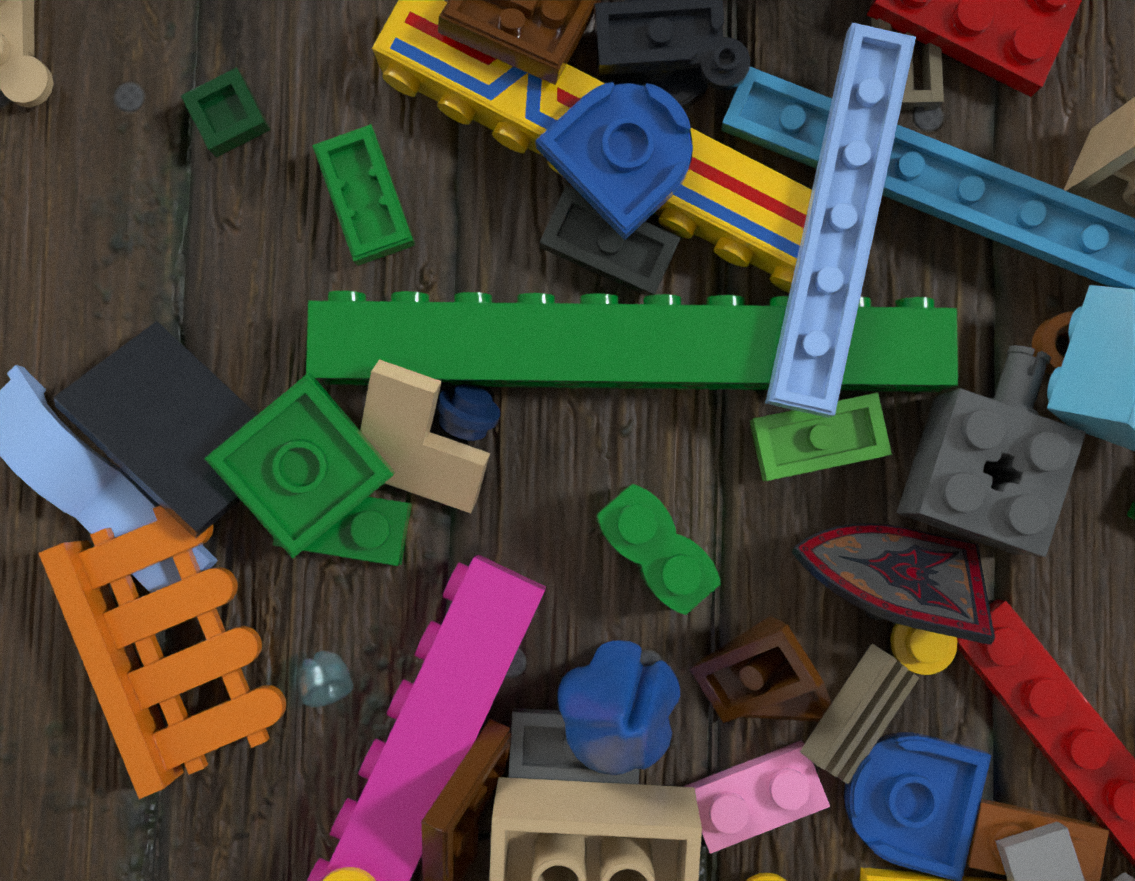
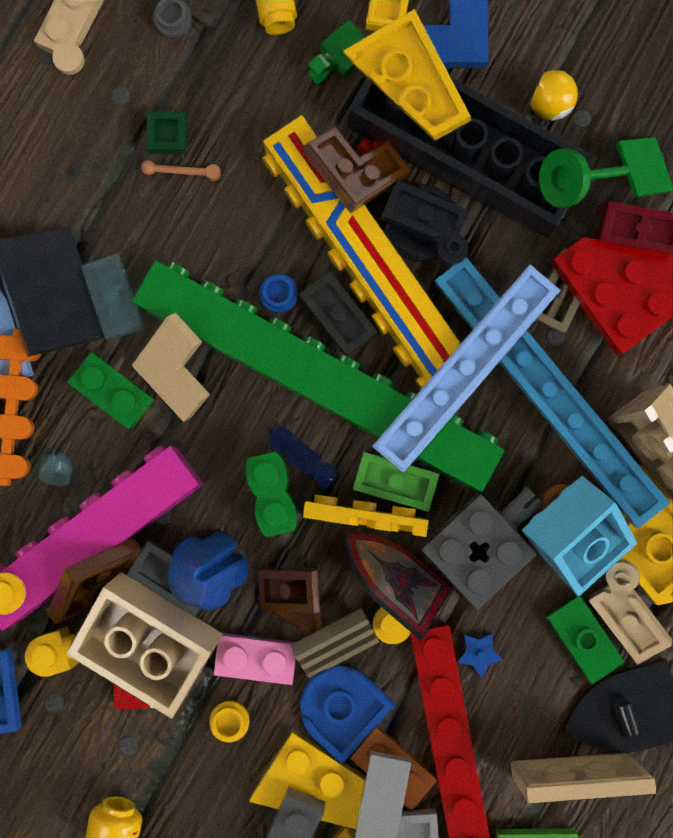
camera: 25 degrees right, 0 degrees up
(227, 177) = (212, 171): none -> nougat hinge
(254, 369) = (112, 297): none -> clear light blue plate
(300, 465) = (104, 347): green tile -> none
(363, 195) = (218, 217): green plate -> none
(467, 412) = (210, 365): dark blue plate -> none
(508, 258) = (278, 293): none -> blue plate
(622, 151) = (367, 268): blue tile -> none
(669, 472) = (303, 457): none -> clear blue axle
(856, 485) = (365, 513): none -> yellow wing
(1065, 617) = (479, 652): none -> blue piece

